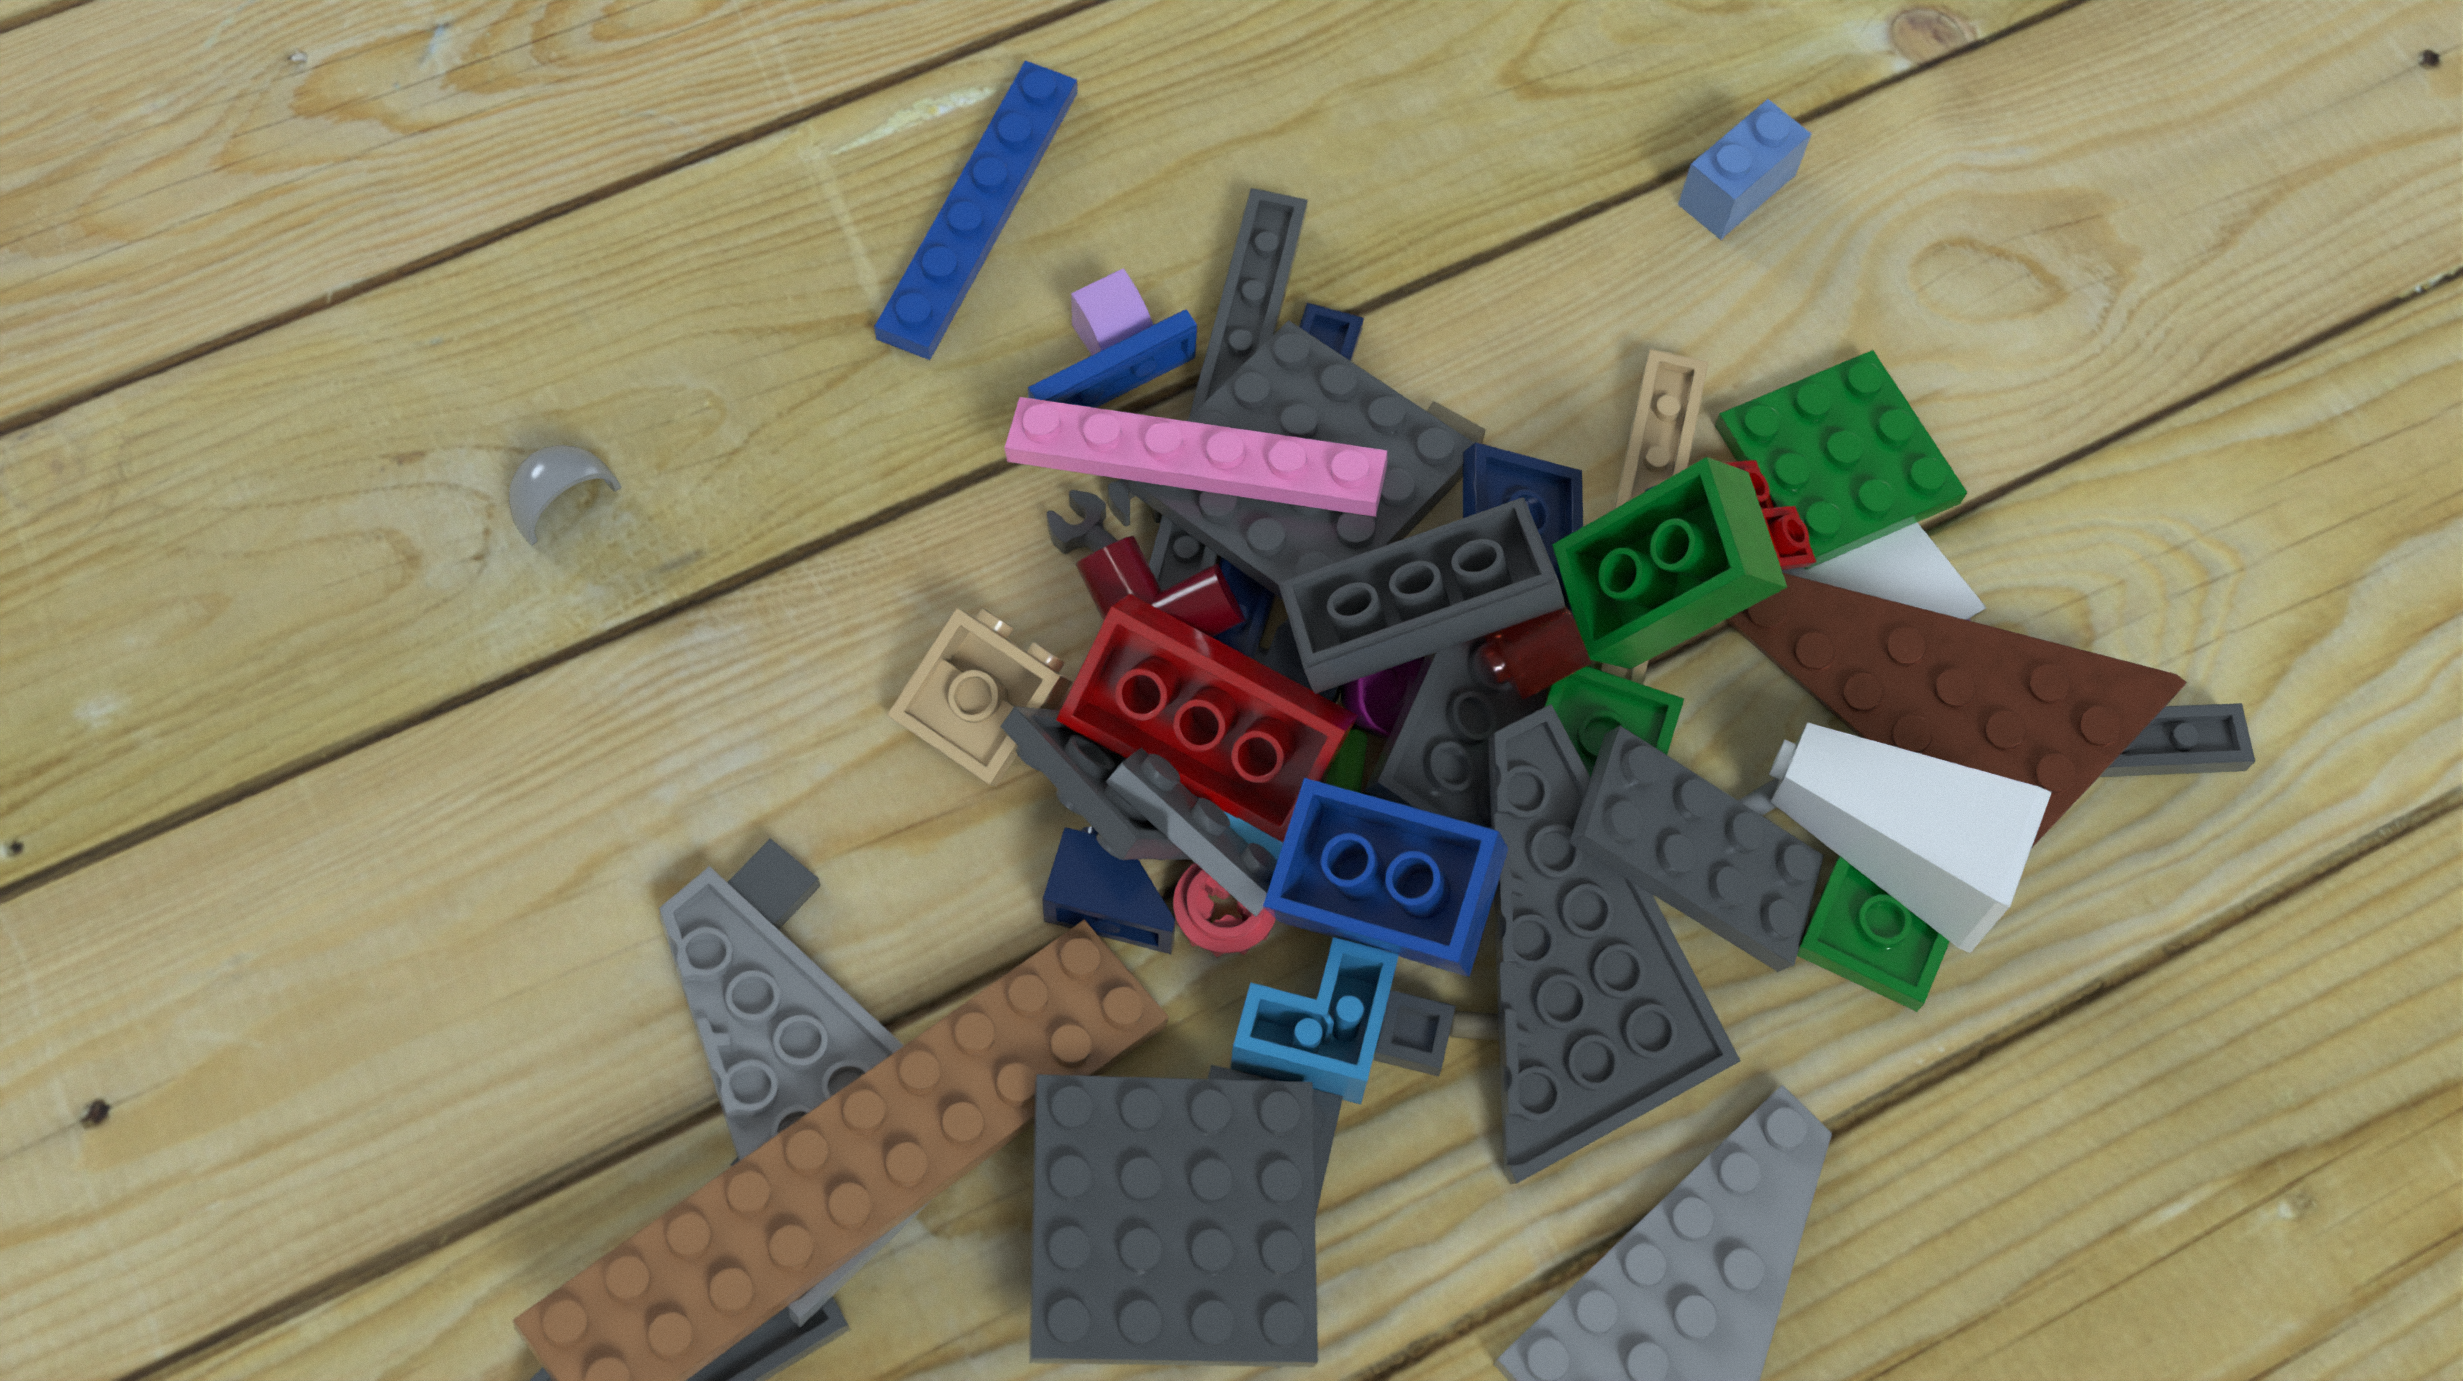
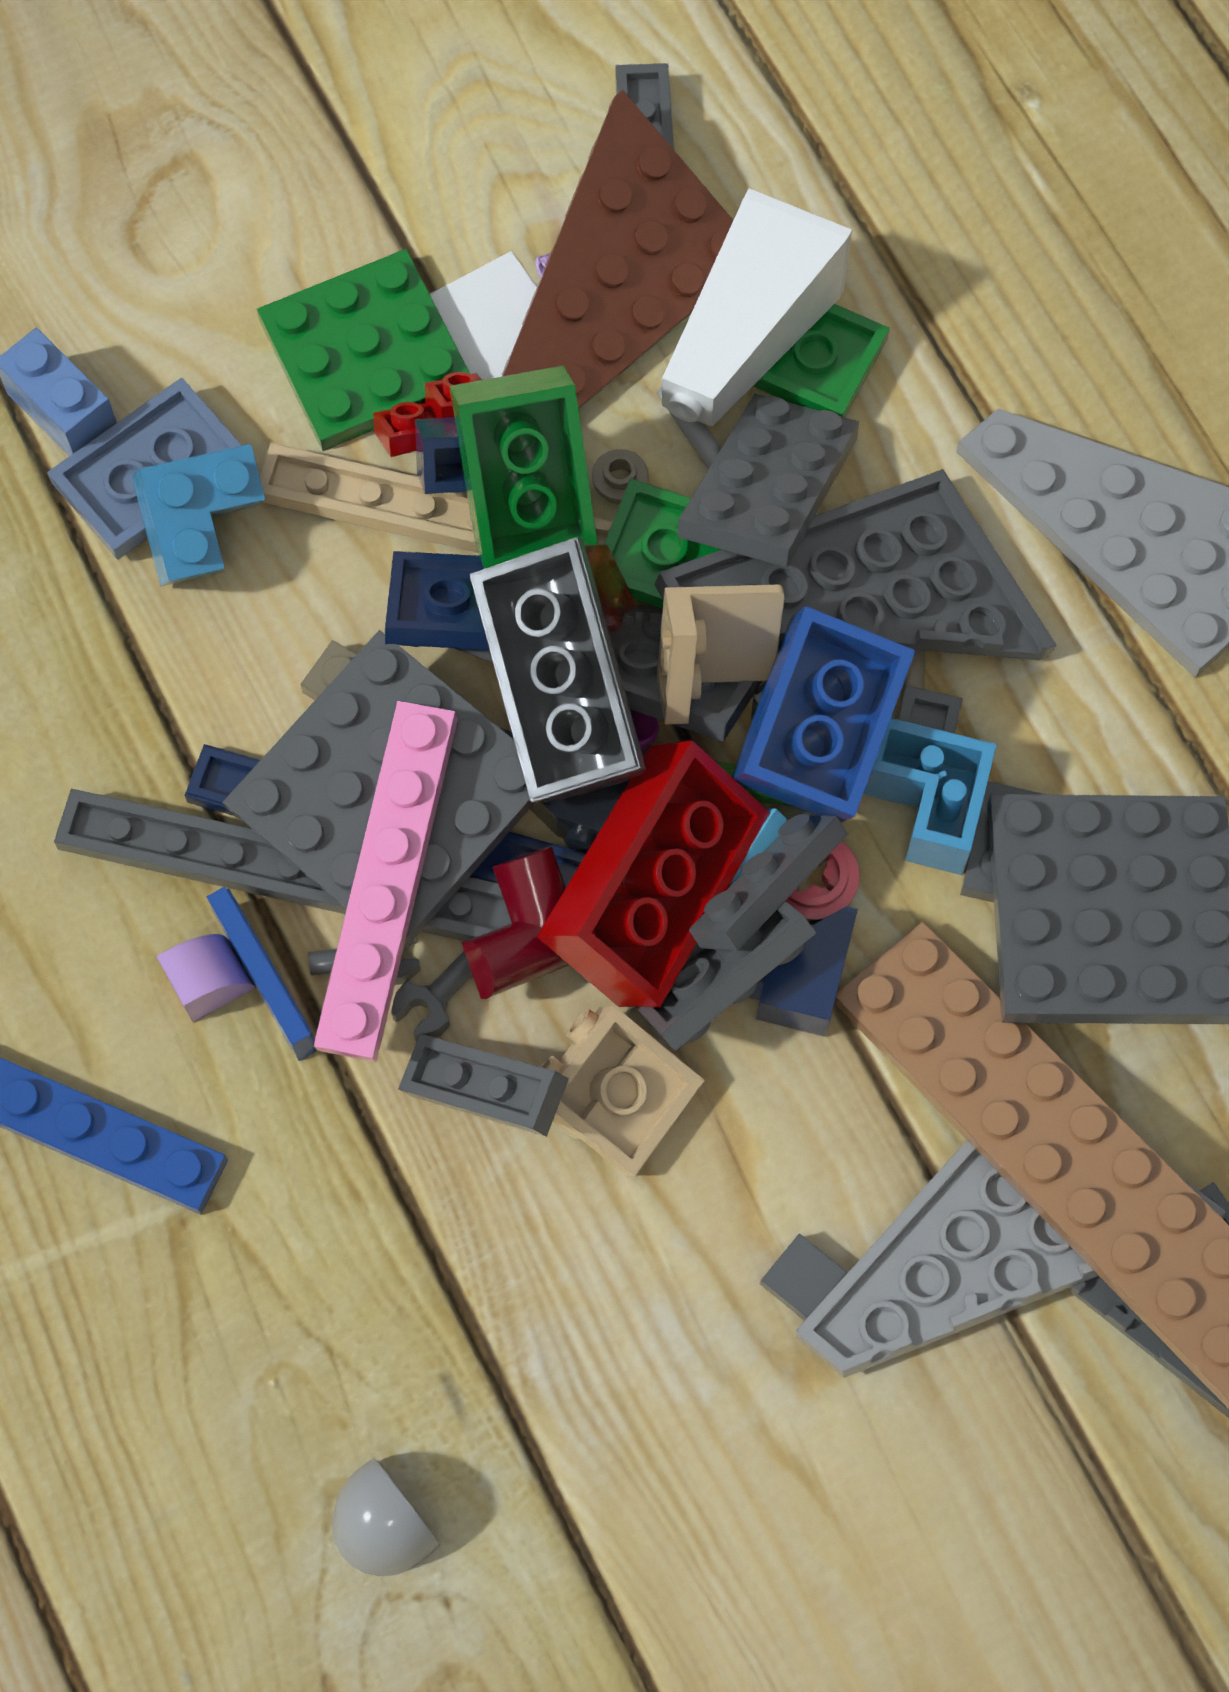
camera: 85 degrees left, 5 degrees up
(979, 559) = (484, 1084): none -> dark grey plate
(1474, 743) = (715, 638): none -> tan bracket
(1617, 270) = (179, 505): none -> dark azure brick
(1673, 259) = (100, 474): none -> sand blue plate
(1702, 727) = (619, 459): none -> dark tan plate

